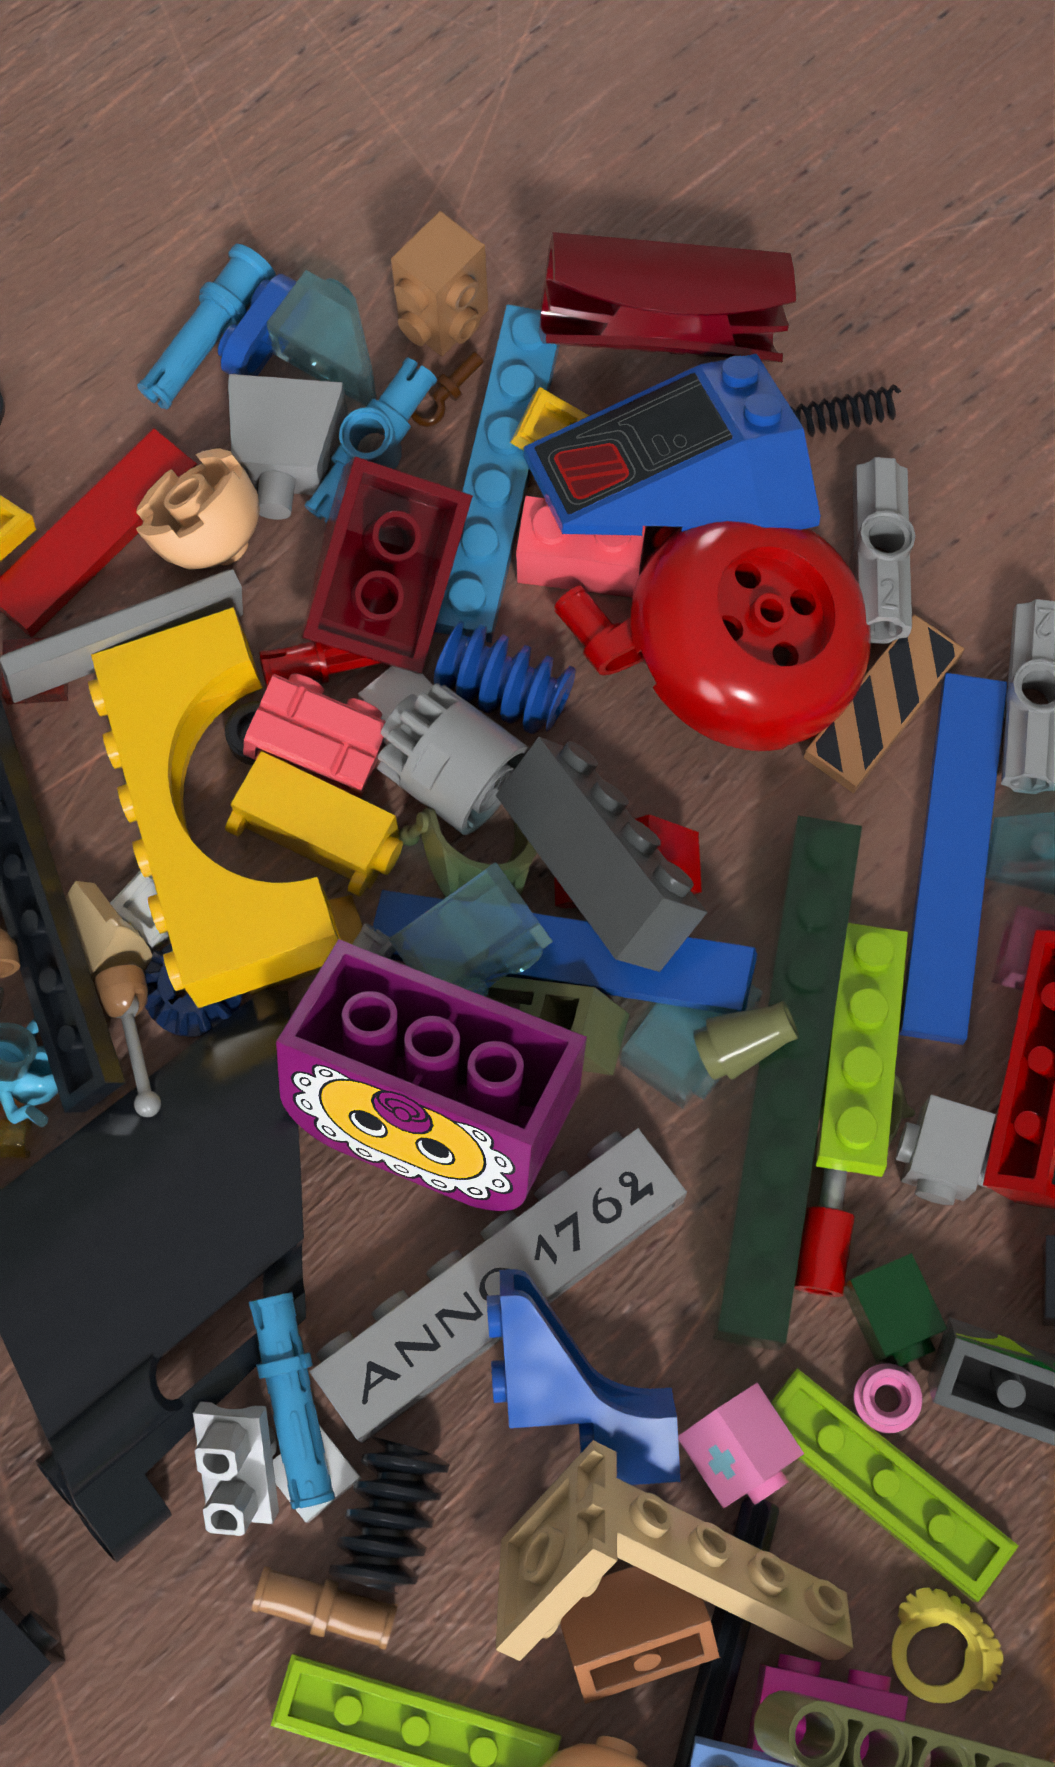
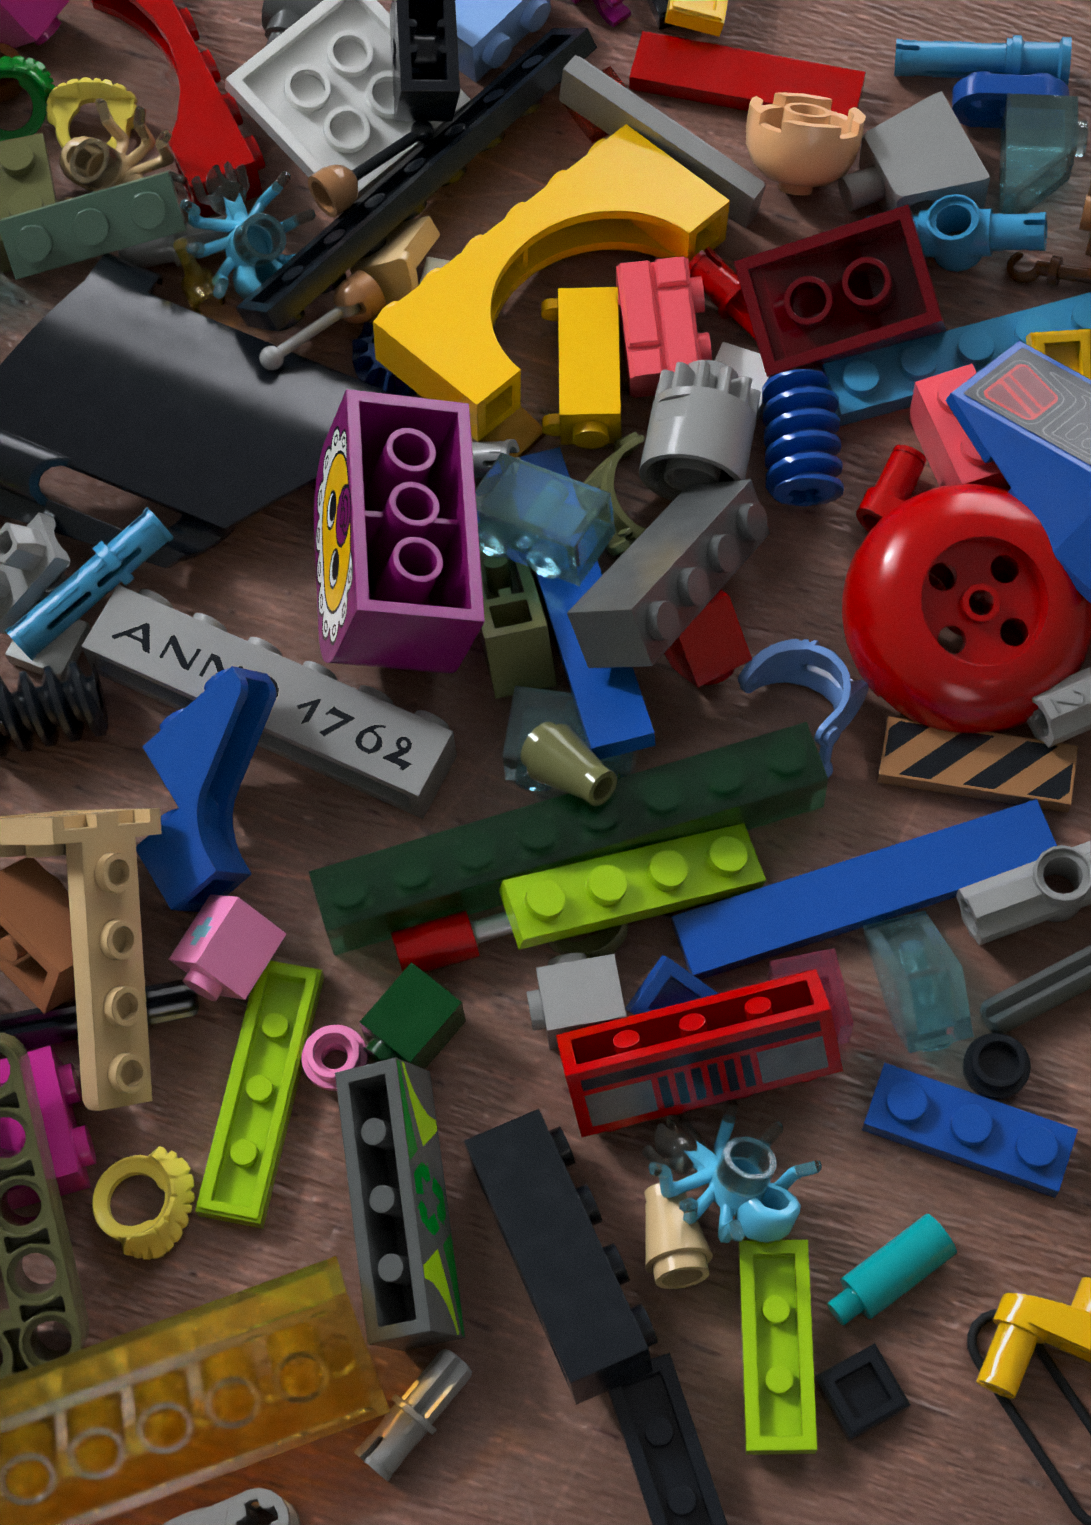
camera: 65 degrees right, 5 degrees down
(736, 780) = (814, 667): none -> medium blue helmet
(980, 1067) = (667, 986): none -> blue plate

